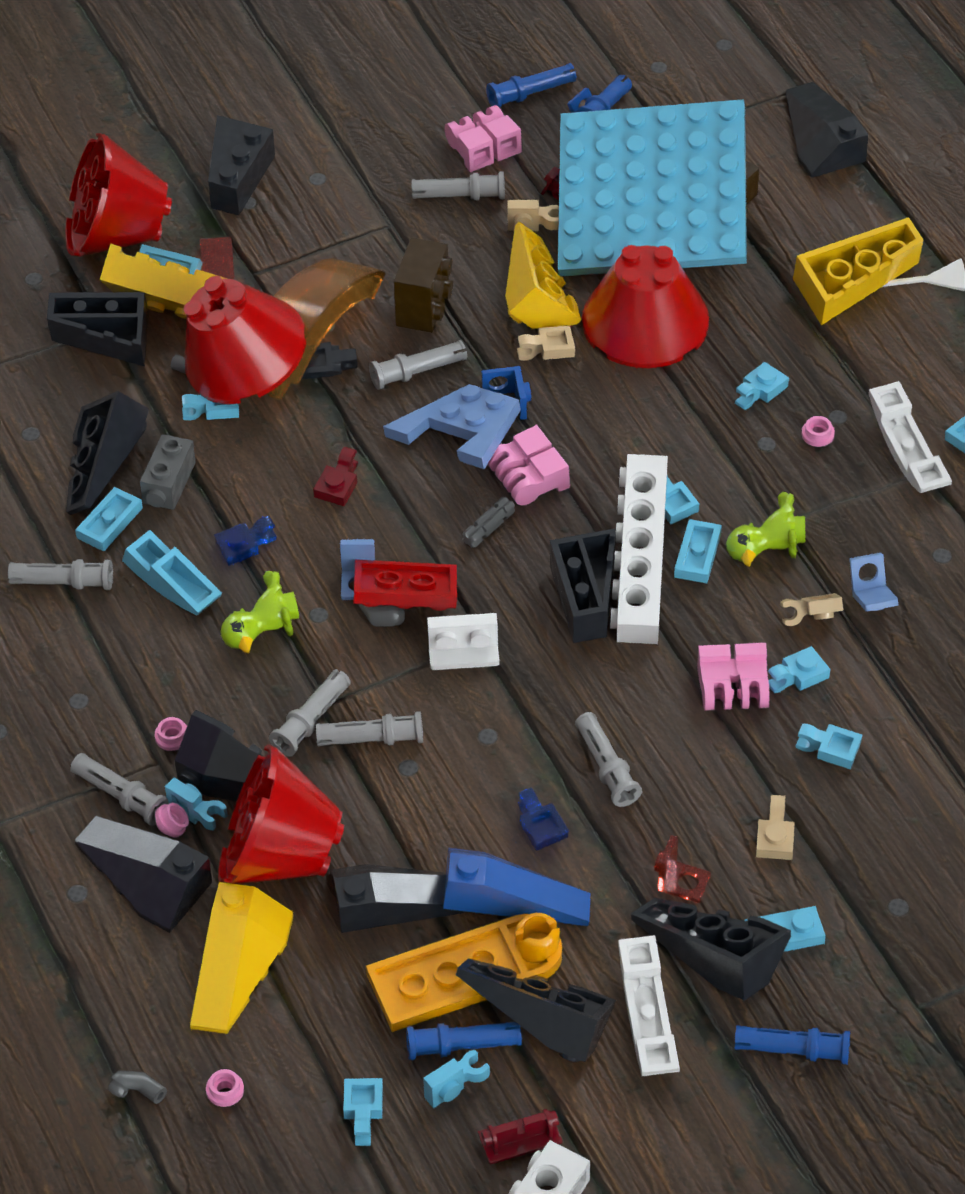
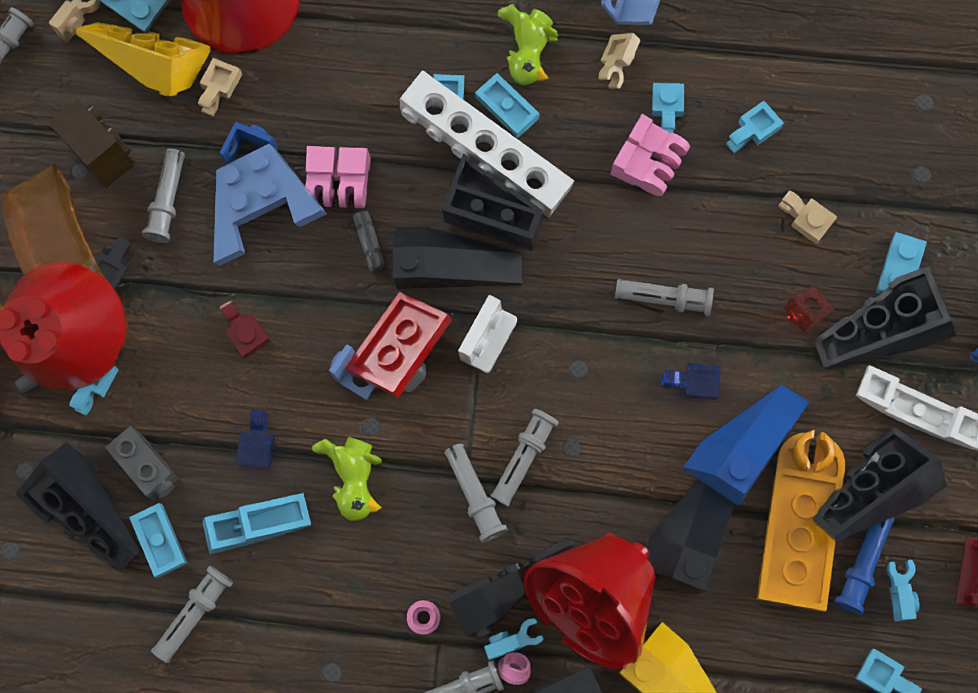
camera: 50 degrees left, 25 degrees up
(514, 585) = (442, 260): none -> black wedge

